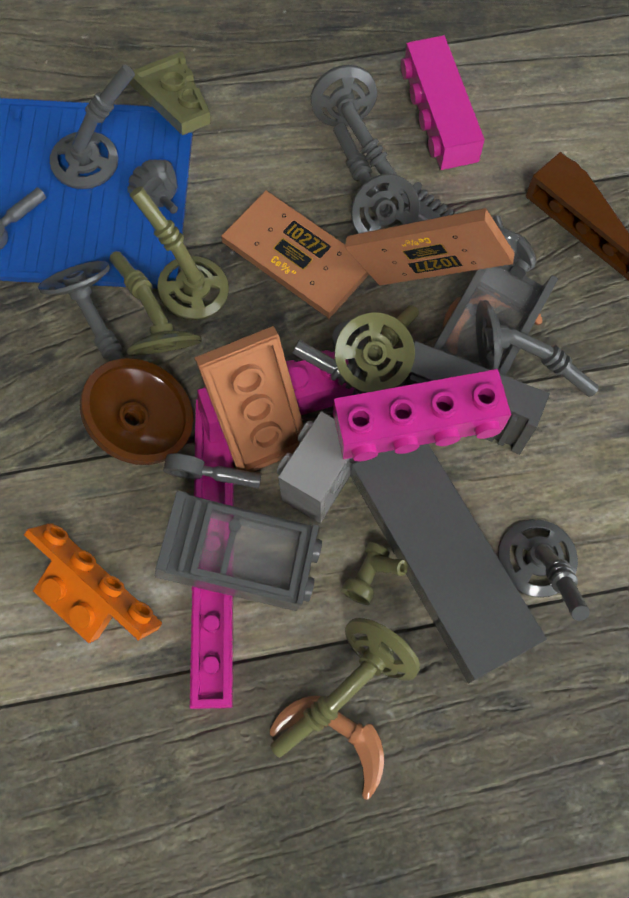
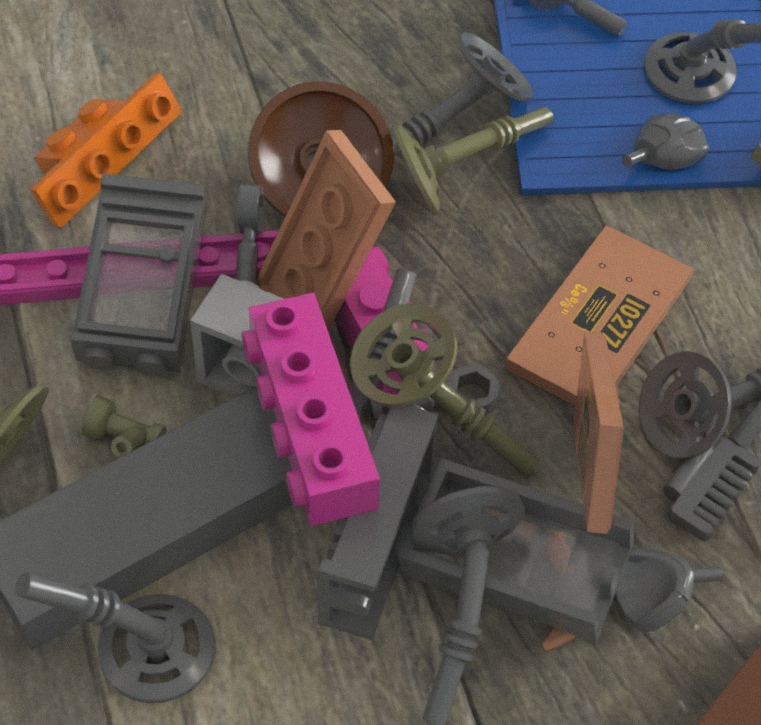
camera: 80 degrees right, 15 degrees down
(191, 277) = (525, 177): olive dish -> none

